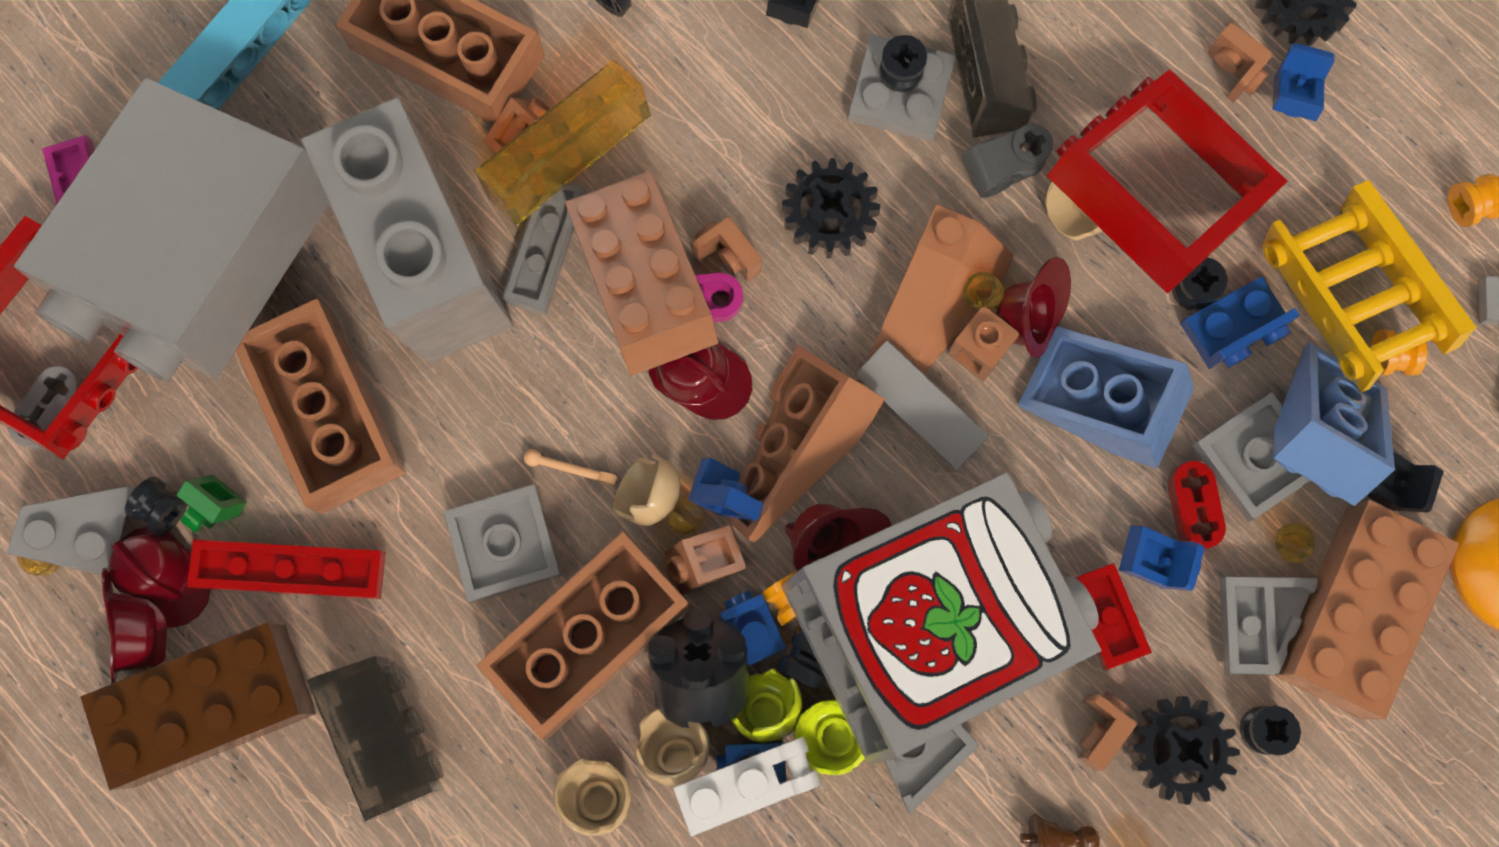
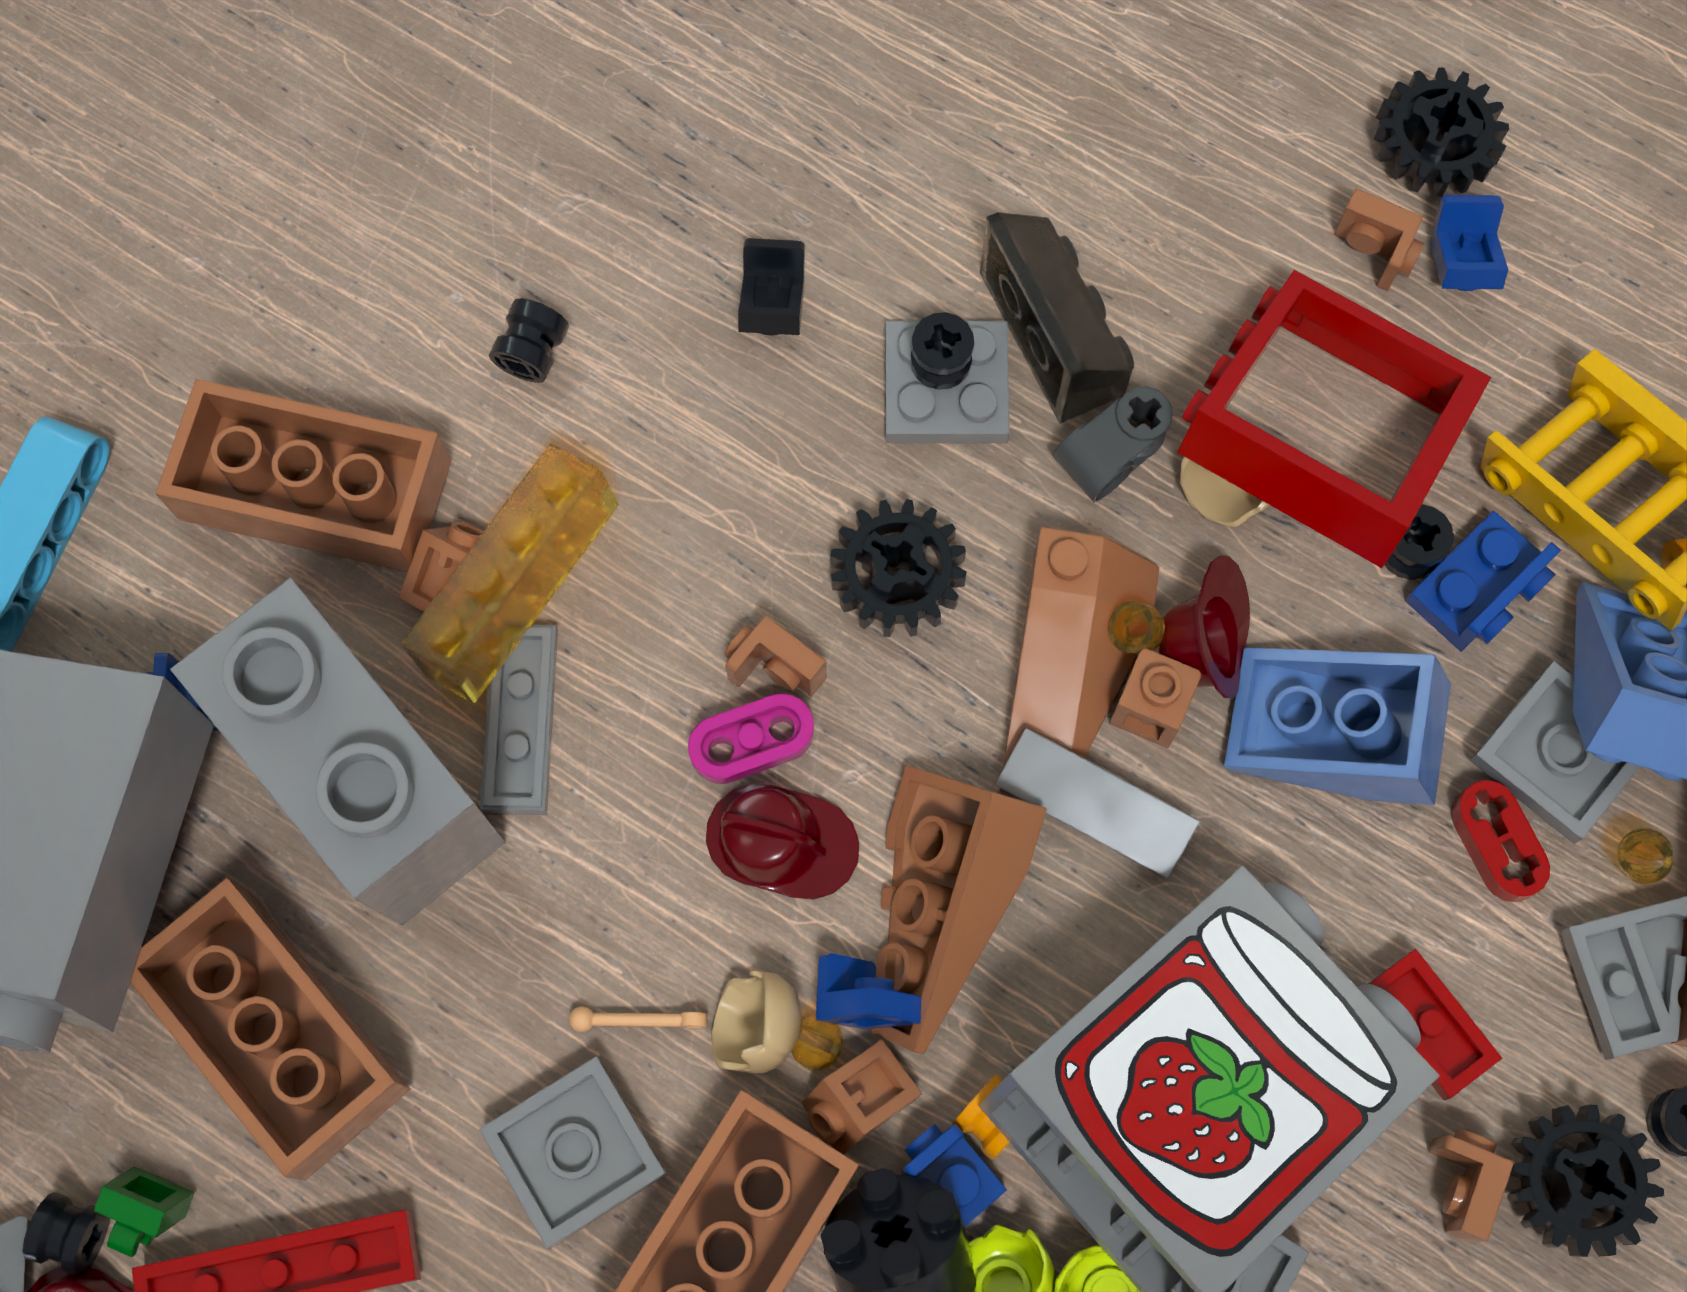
camera: 15 degrees left, 5 degrees down
(642, 273) = (669, 724): nougat brick -> none
(800, 667) = (1033, 1211): black wheel -> none
(828, 529) = (1023, 1011): dark red piece -> none
(1161, 559) = (1477, 926): blue bracket -> none

